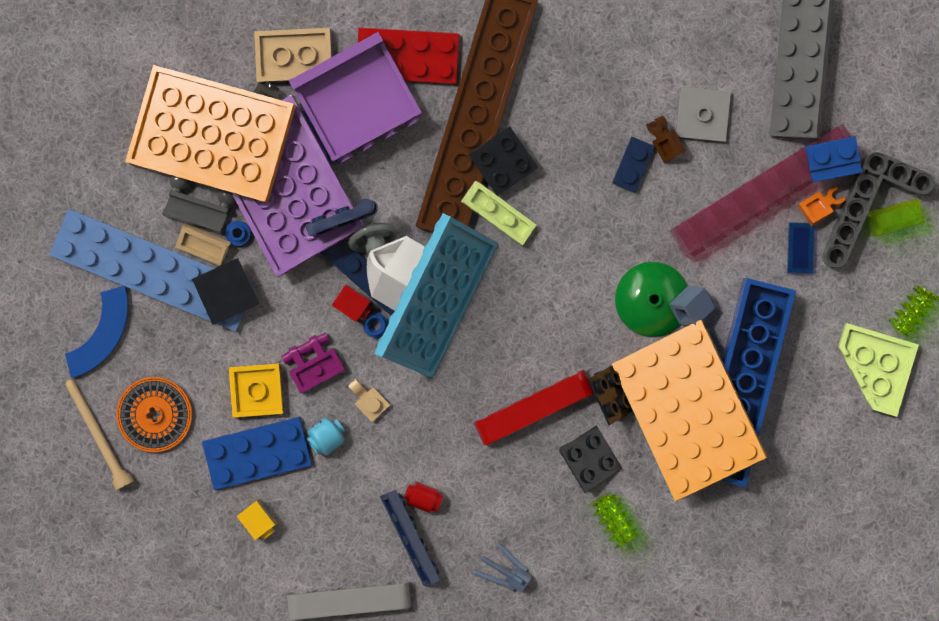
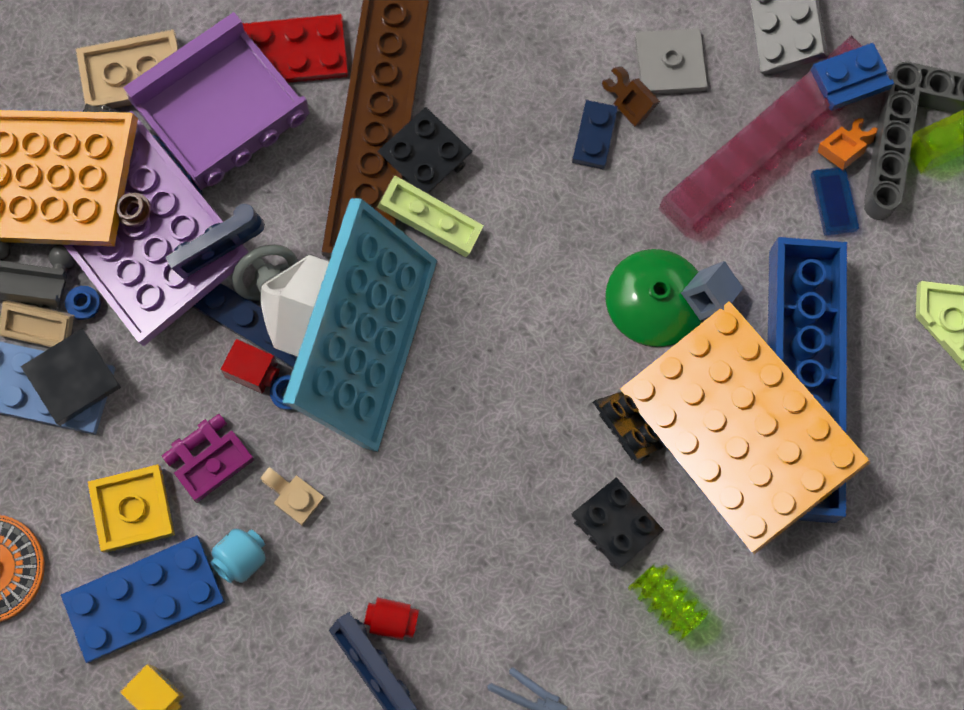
camera: 10 degrees left, 15 degrees down
(279, 172) = (128, 203): none -> reddish brown plate
(533, 407) = (524, 463): red beam -> none

